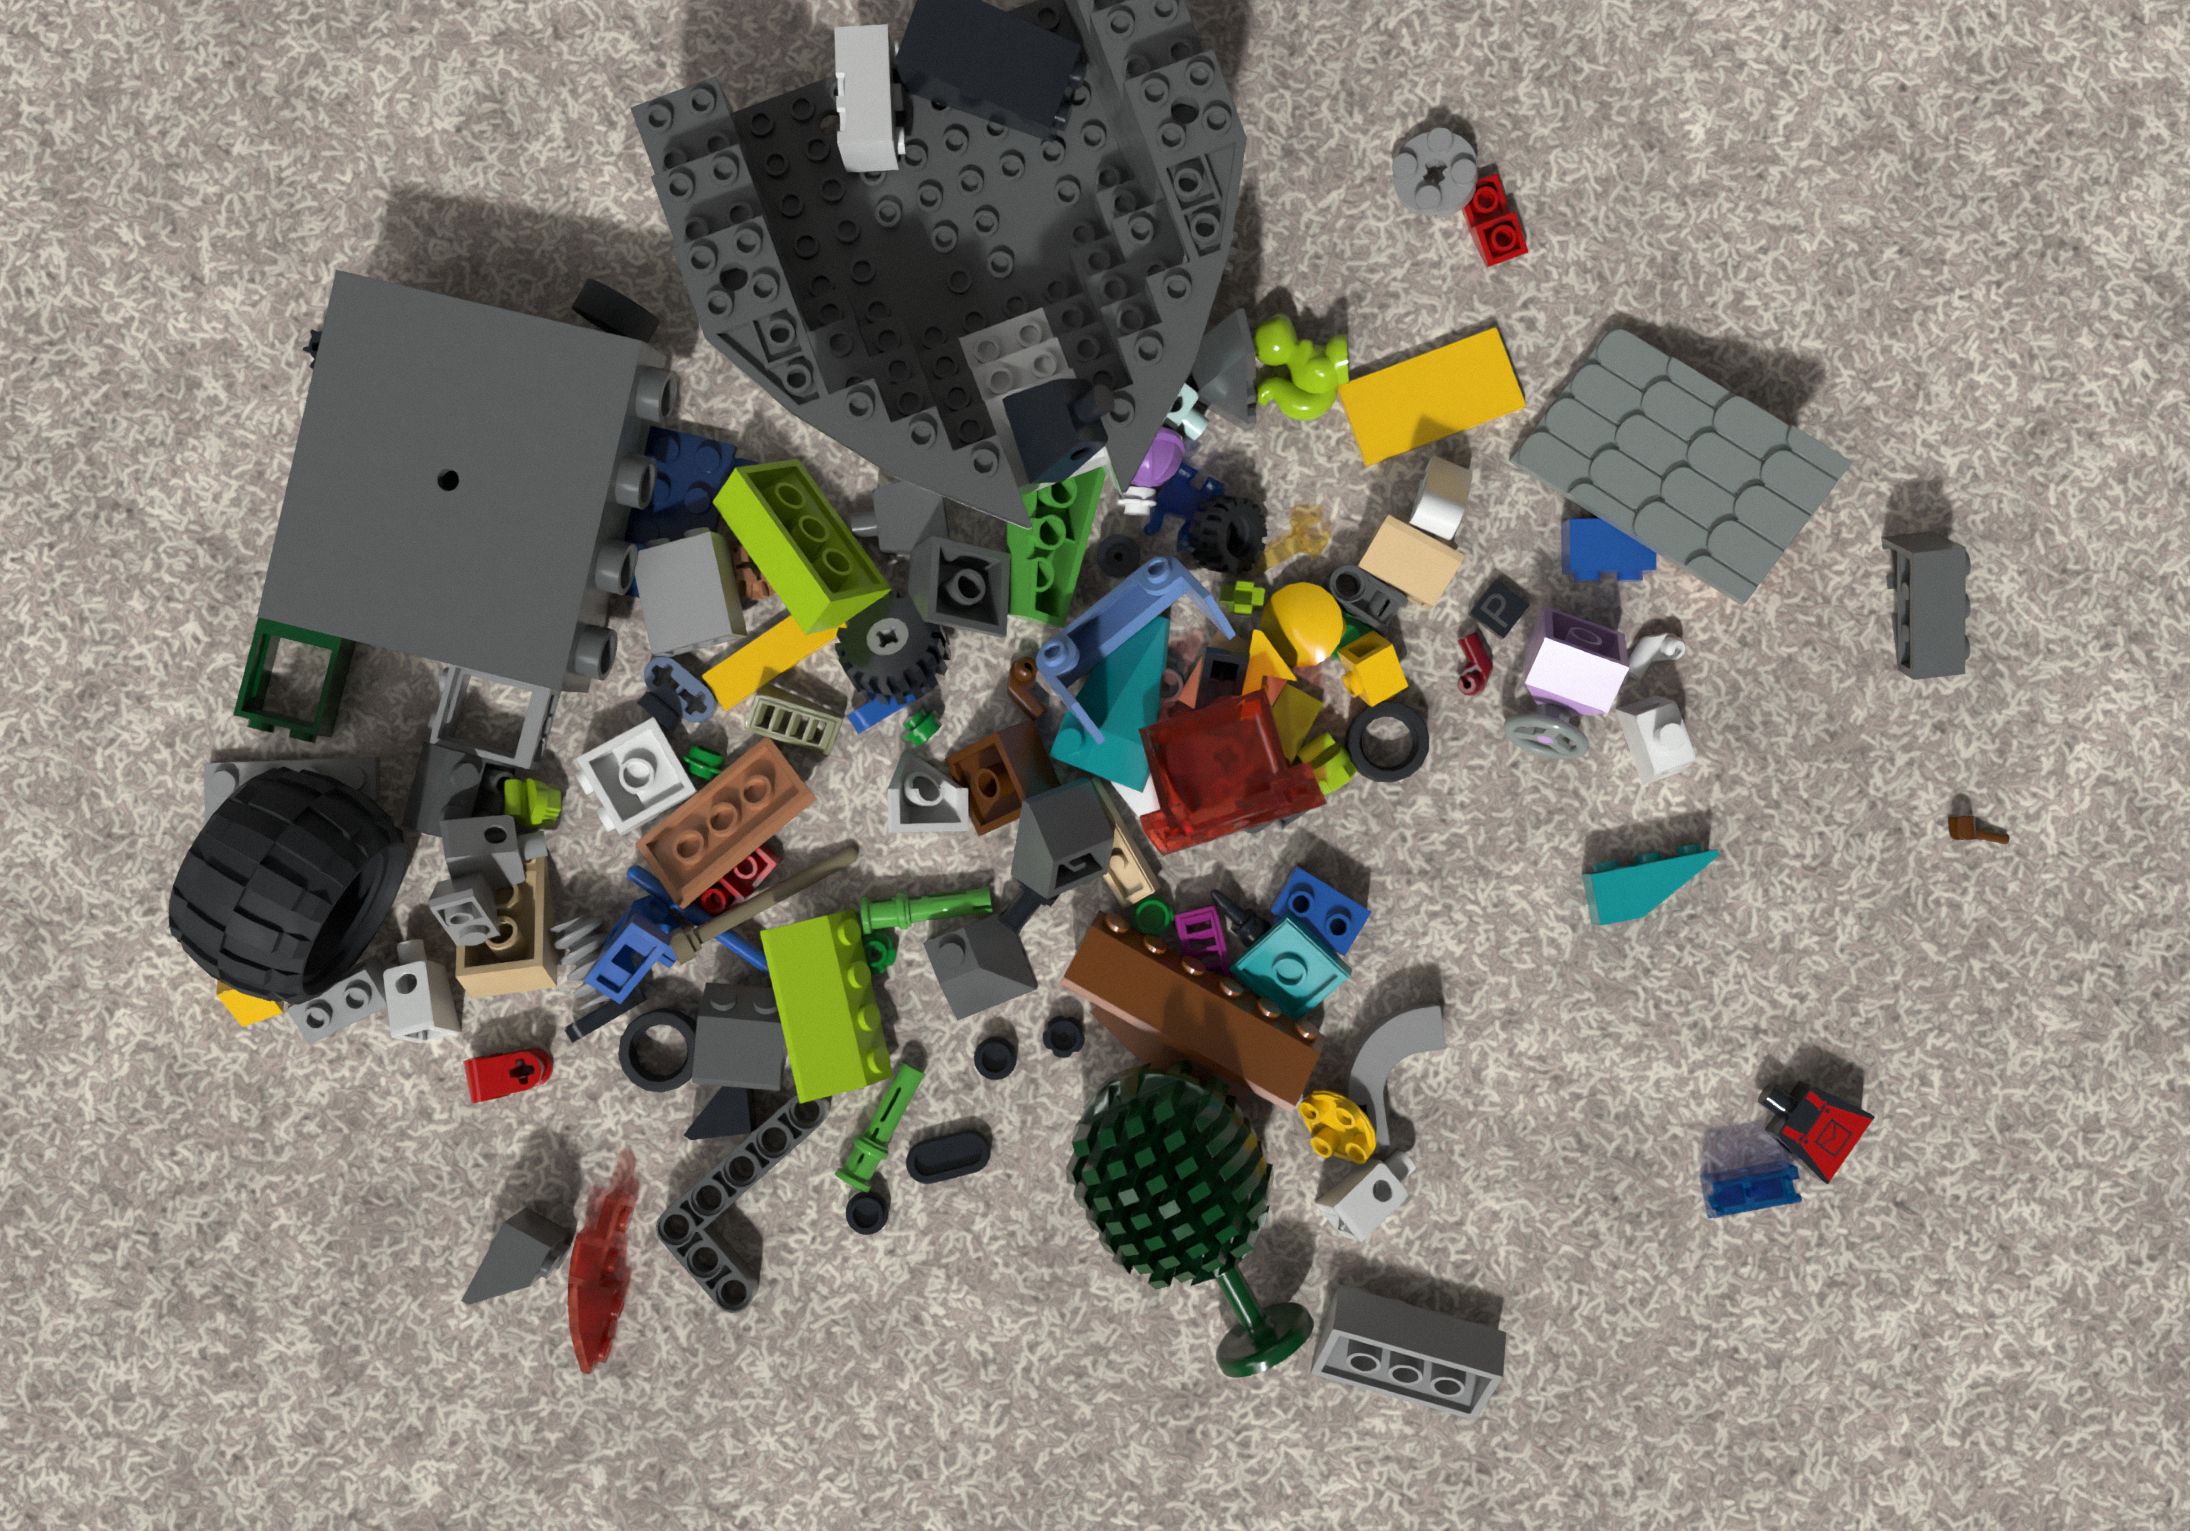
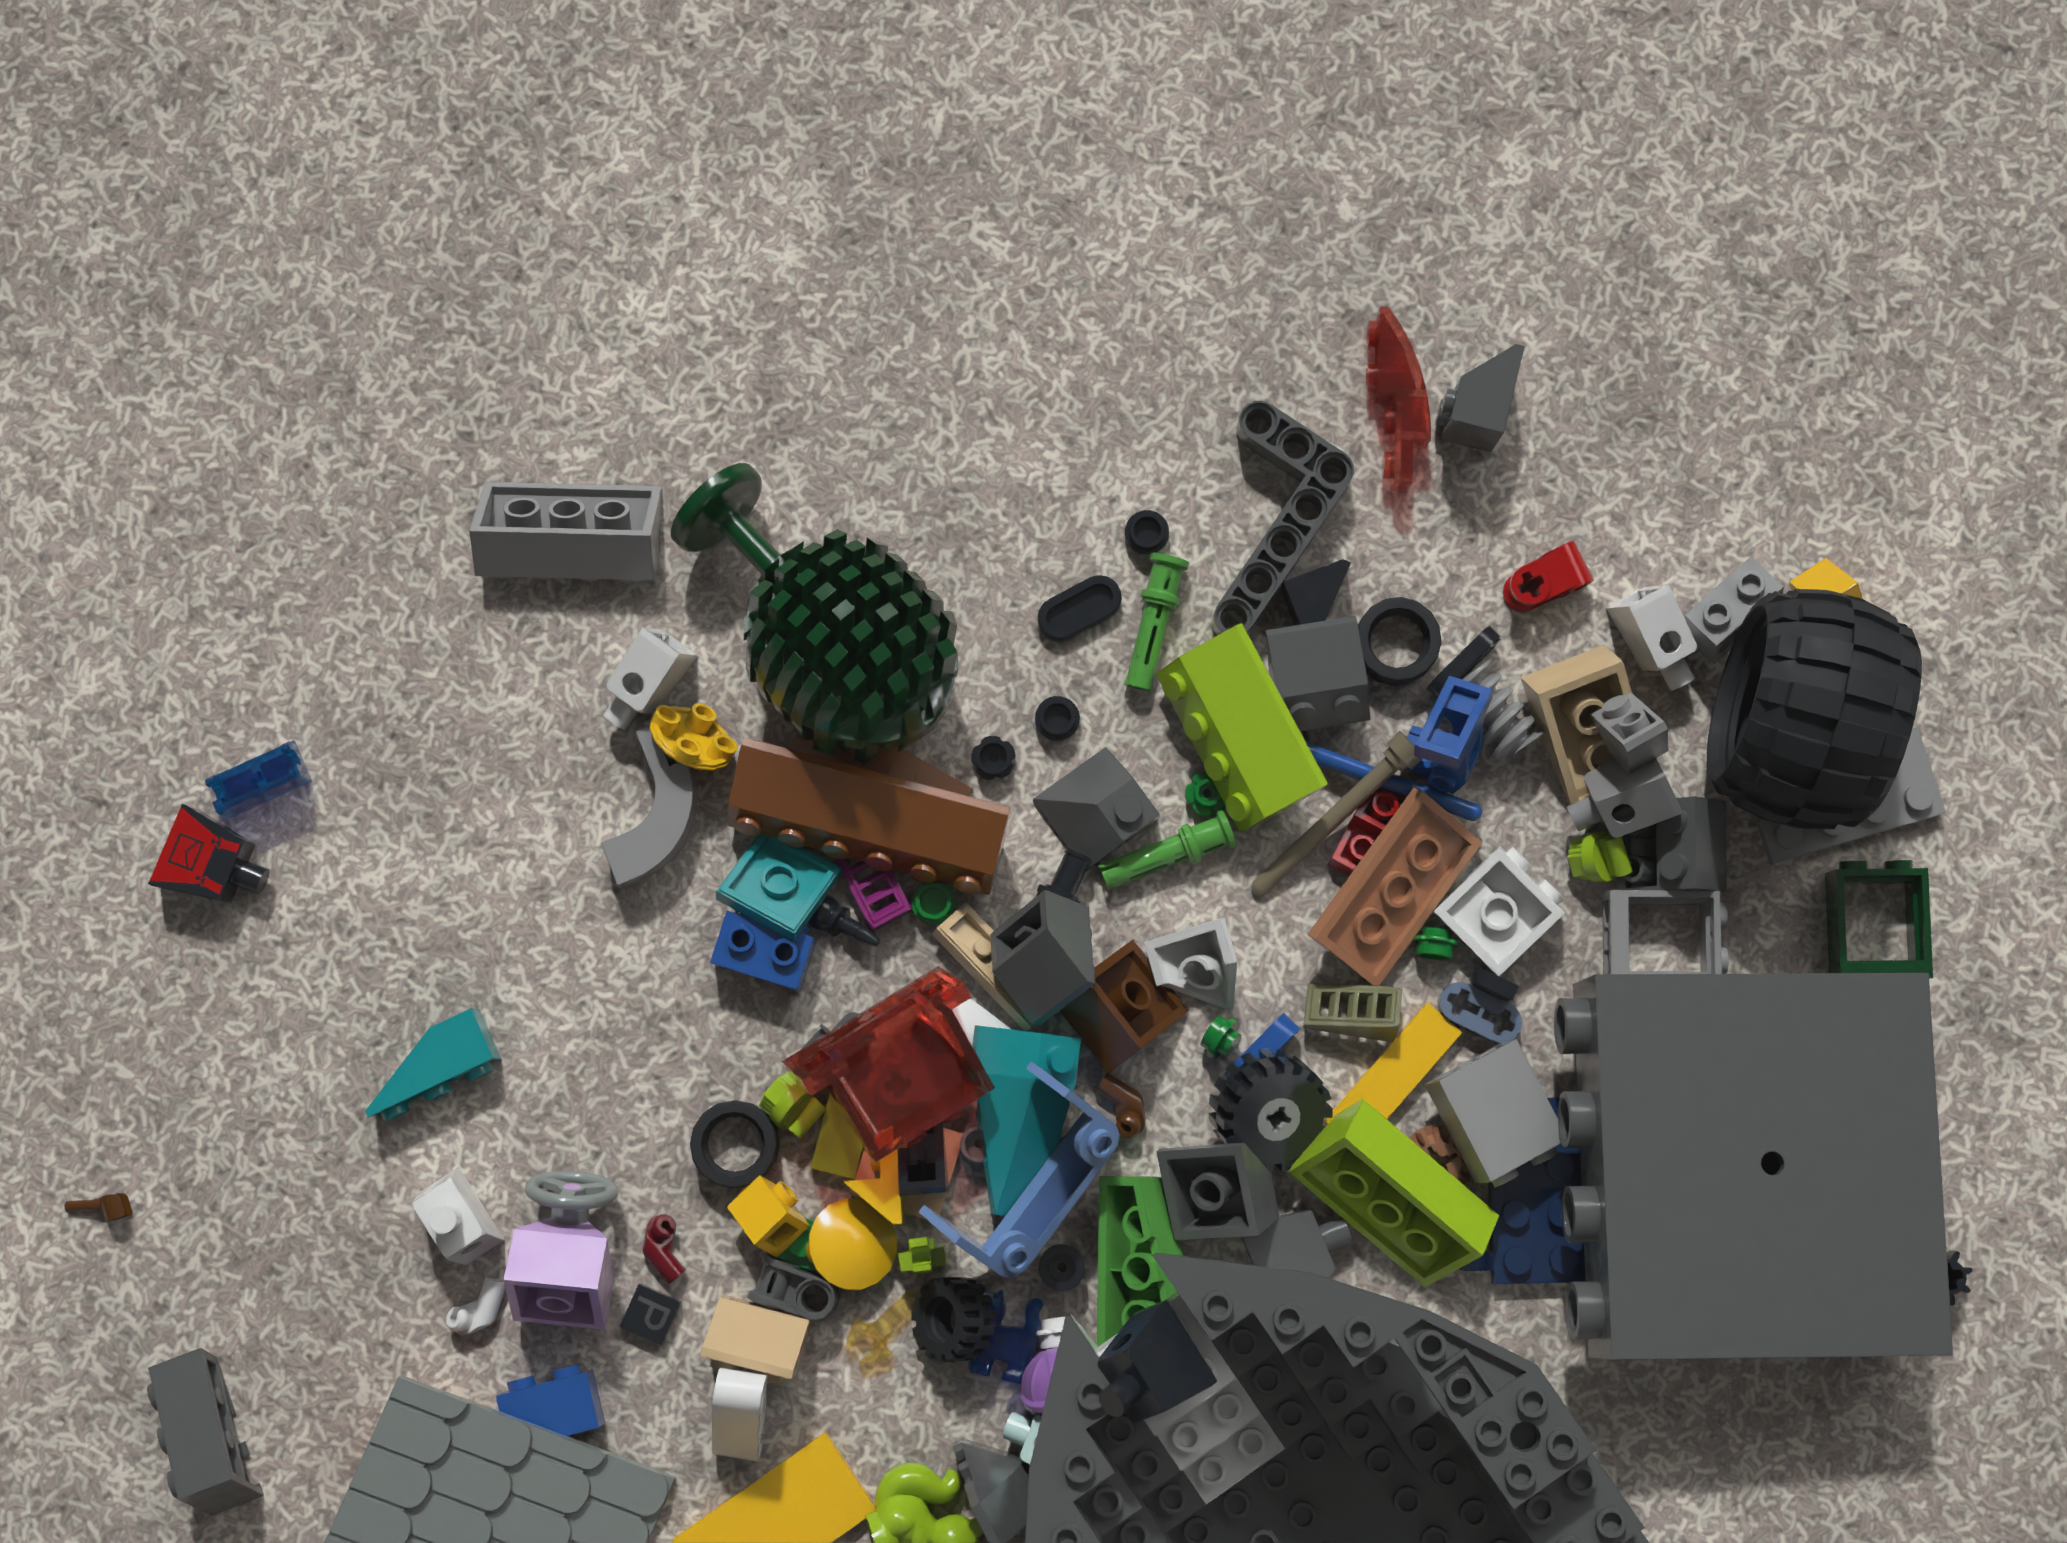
camera: 170 degrees right, 5 degrees down
(614, 312) = (1655, 1390): black tyre -> none

